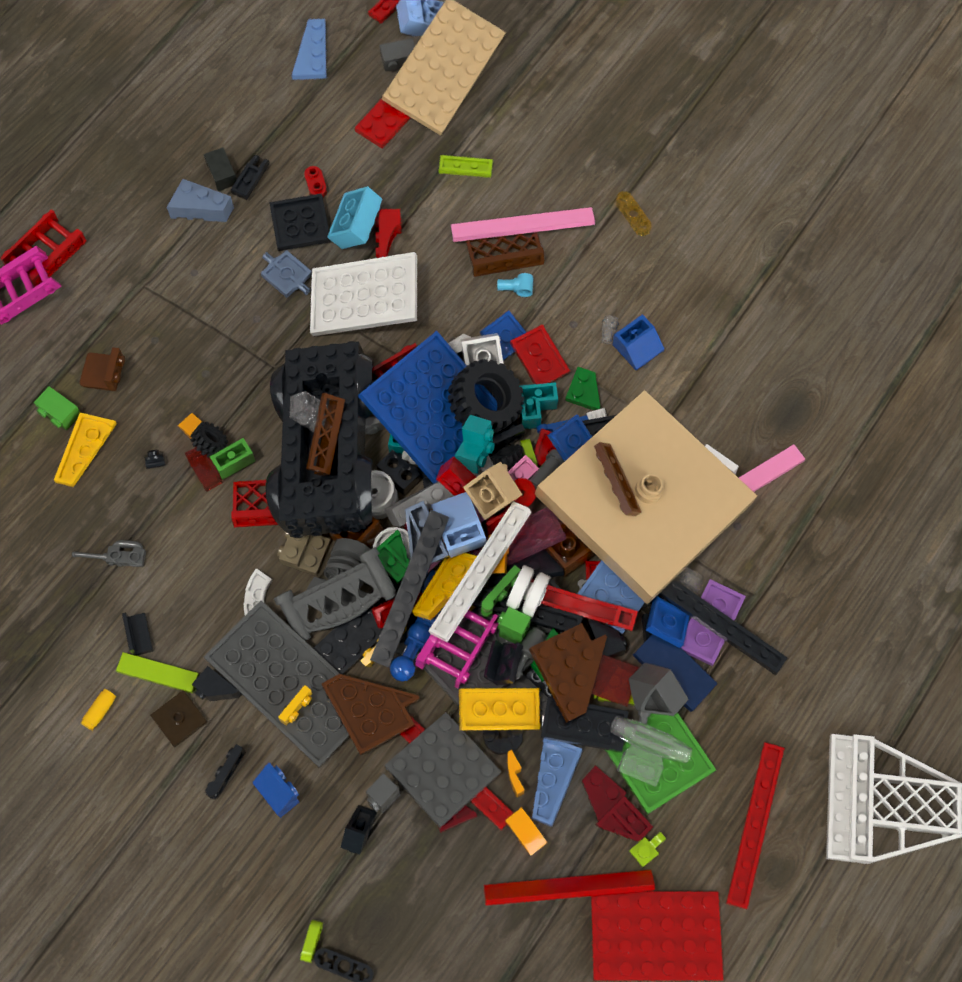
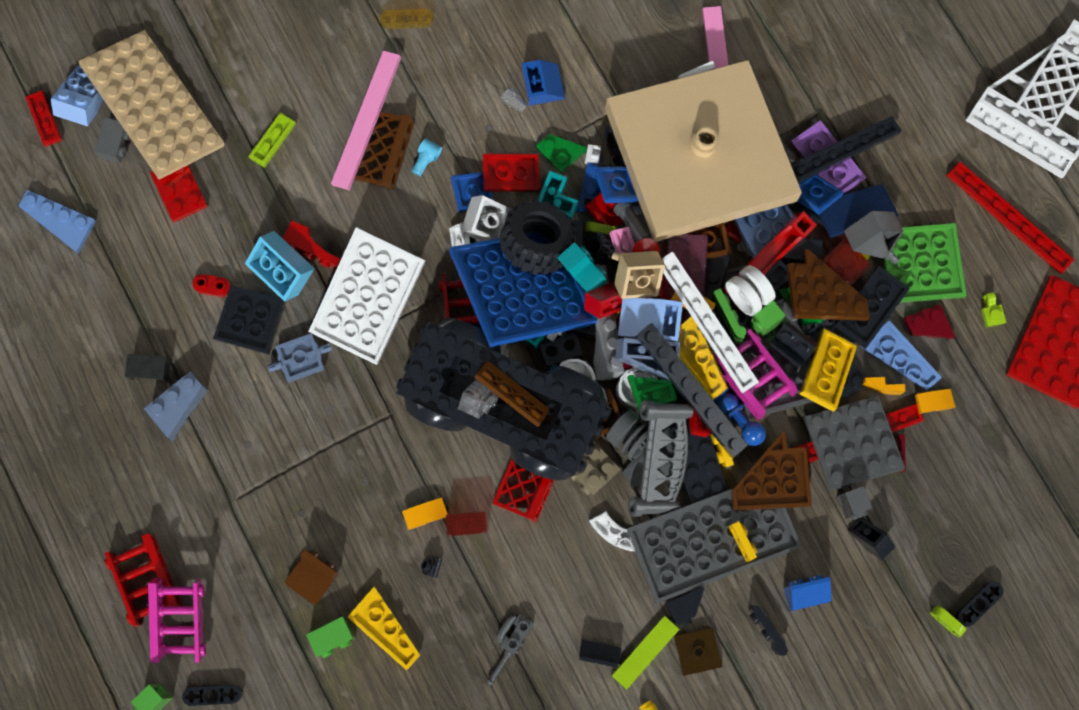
camera: 65 degrees left, 10 degrees up
(208, 439) = (445, 505): black tyre -> none
(232, 458) = (472, 492): bright green brick -> none
(249, 177) = (173, 345): black hinge -> none
(569, 887) = (997, 390): red tile -> none
(617, 479) = (692, 164): reddish brown plate -> none
(625, 821) = (963, 317): dark red wing -> none
(647, 749) = (916, 264): clear plate -> none

